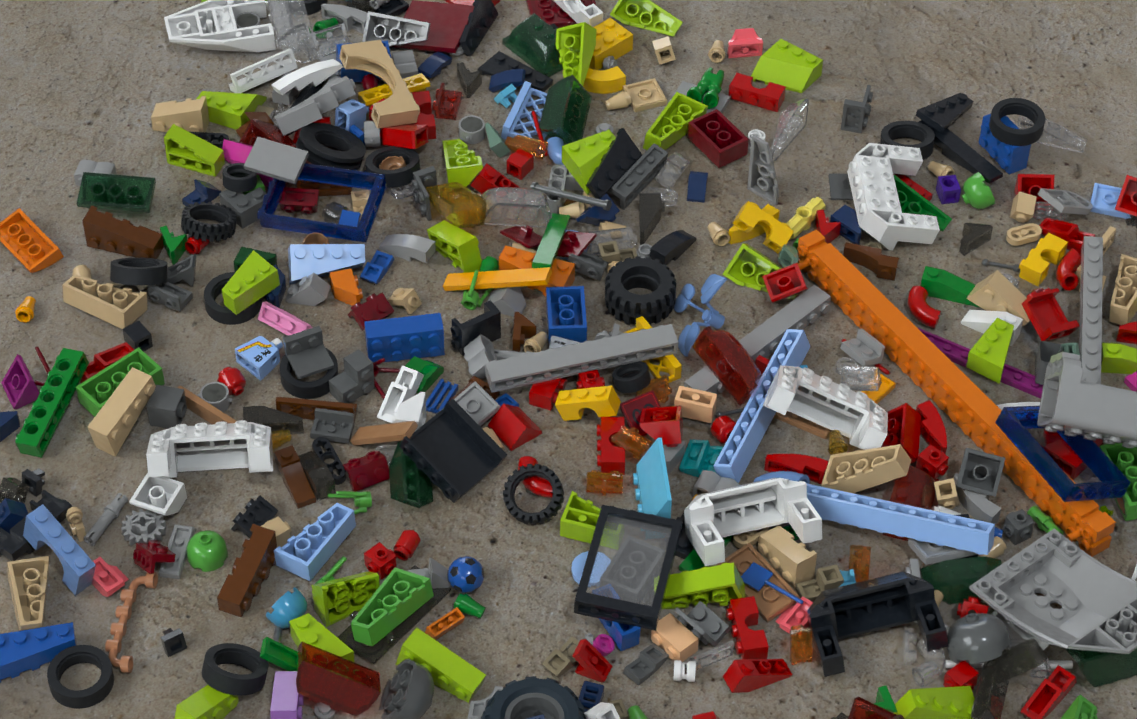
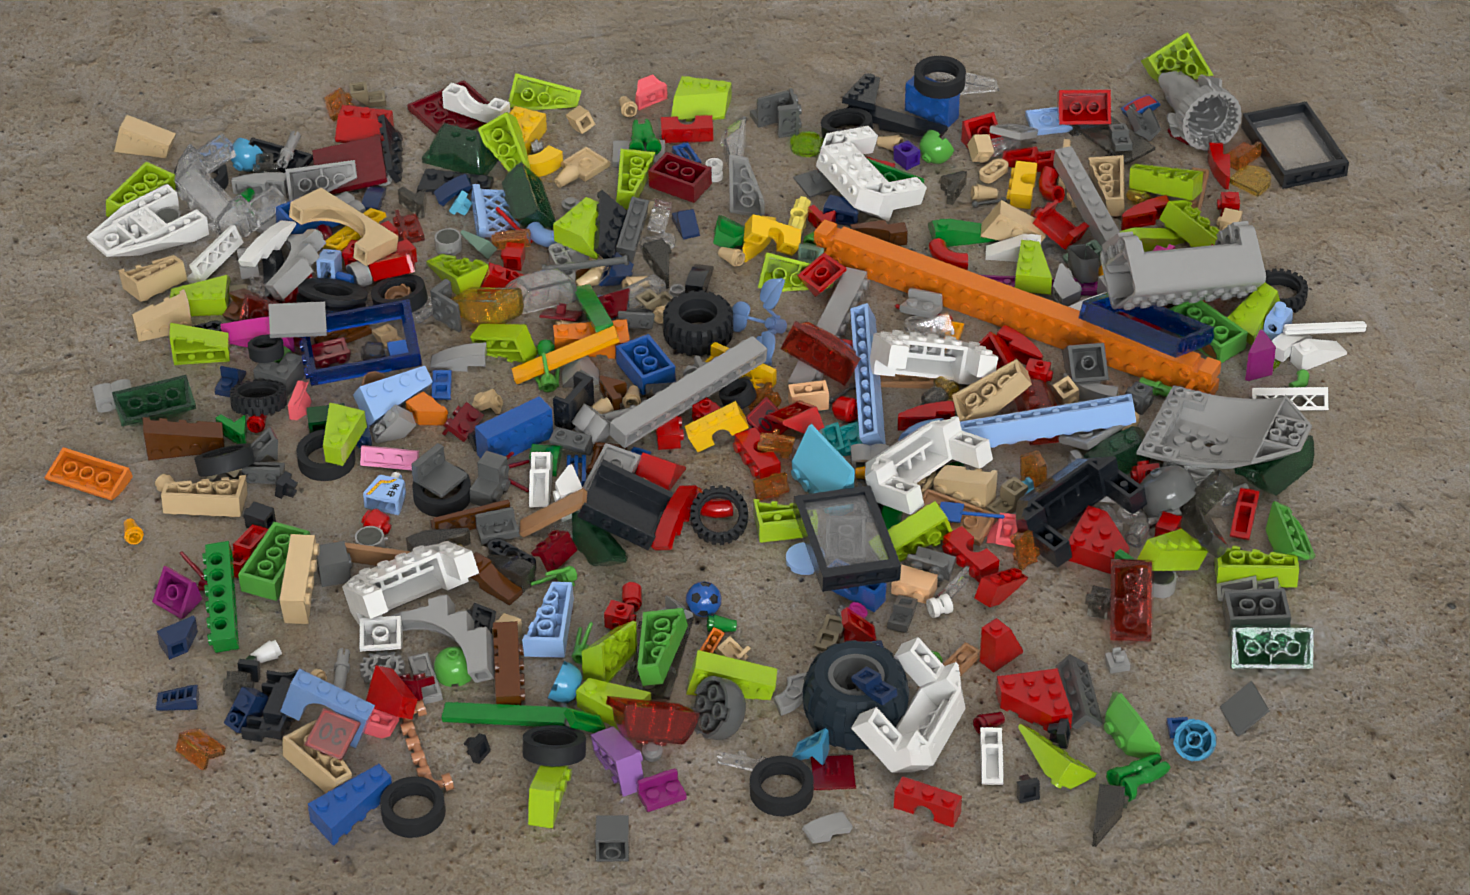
camera: 25 degrees left, 5 degrees down
(46, 577) = (332, 734): none -> piece
(59, 471) = (267, 652): none -> white cone
(127, 557) = (391, 693): none -> red slope
(179, 315) = (285, 486): none -> black tile
(199, 76) = (154, 278): none -> tan wedge
(217, 616) = (503, 714): none -> green tile
(227, 520) = (459, 626): none -> light grey arch
(245, 236) = (299, 401): none -> coral slope
(450, 366) = (572, 441): none -> dark grey bracket
(460, 639) = (732, 649): none -> tan bracket
(493, 479) = (673, 517): none -> red slope
(502, 342) = (603, 406): none -> tan cone
(727, 208) = (728, 233): none -> green slope
(742, 107) = (675, 149): none -> blue tile
(816, 449) = (934, 395): none -> clear smoke head
(839, 93) = (767, 108): none -> dark grey bracket
(856, 141) = (806, 144): none -> clear neon green tile
(878, 663) = (1096, 540): none -> red brick
(999, 254) = (982, 193): none -> tan cone
(1014, 382) = (1065, 288): none -> light grey slope

